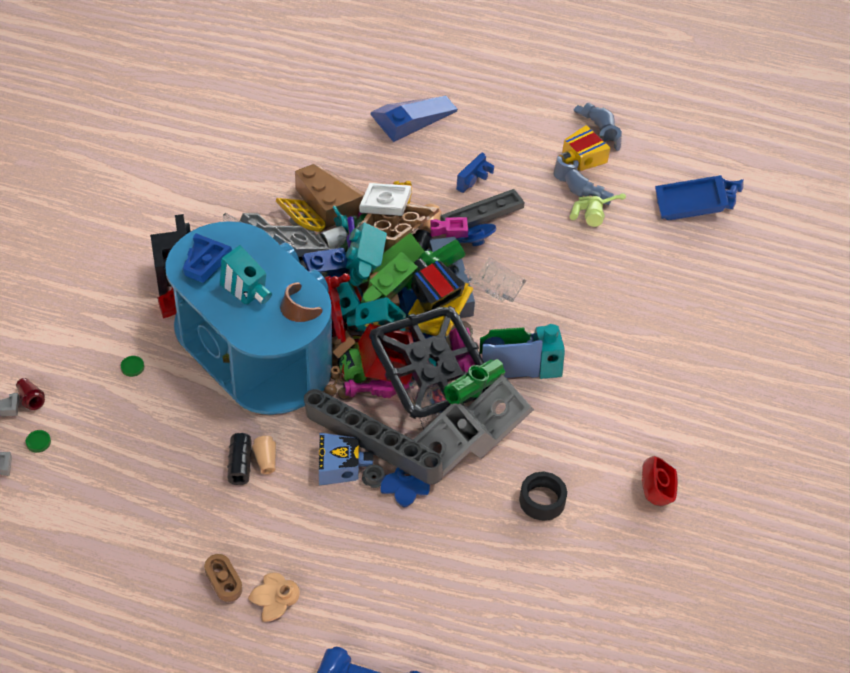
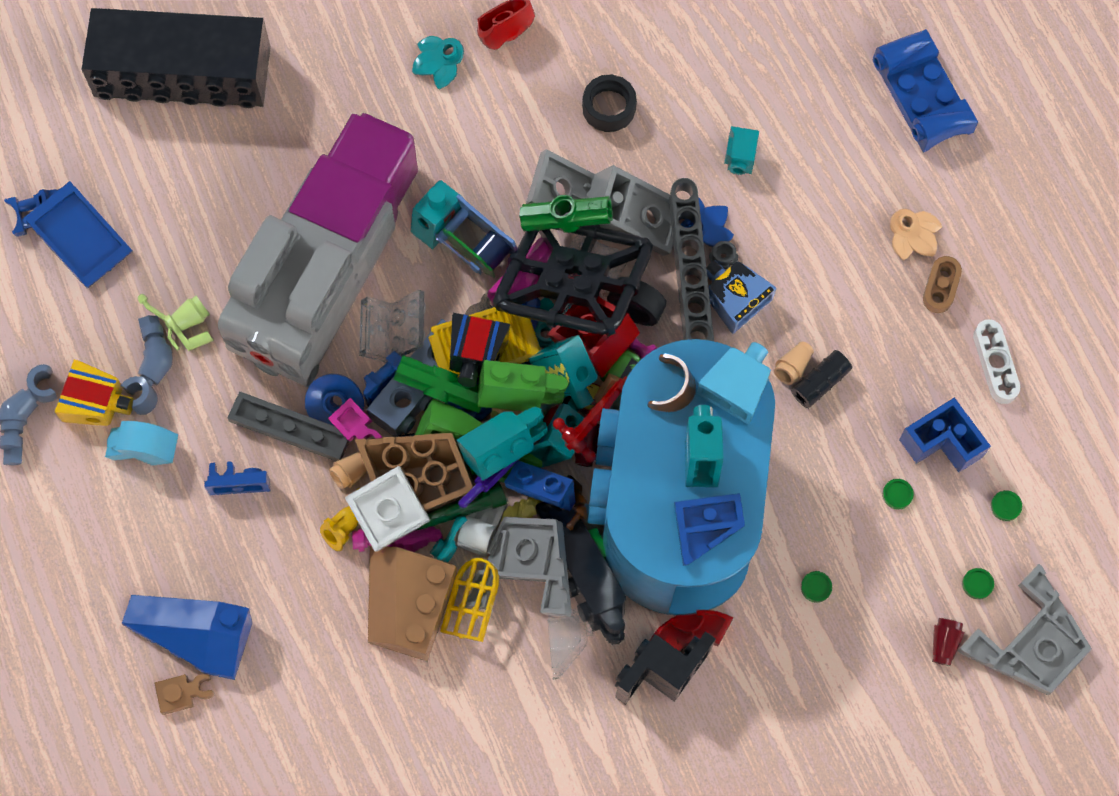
camera: 130 degrees left, 20 degrees up
(58, 494) = (1006, 505): none -> green piece
(129, 489) = (948, 430): none -> blue brick
(132, 446) = (898, 494): none -> green piece
(148, 575) = (1010, 379): none -> white beam
(262, 326) = (737, 381): none -> medium azure torso
(387, 95) = (177, 692): none -> medium nougat plate
(387, 408) = (645, 306): none -> black tyre
(434, 540) = (741, 150): none -> teal window
(468, 261) = (377, 381): none -> blue piece
(533, 147) = (143, 442): none -> medium azure brick
(559, 248) = (315, 260): none -> light grey piece
(664, 433) = (436, 62): none -> teal plate
(774, 297) = (176, 57): none -> black brick

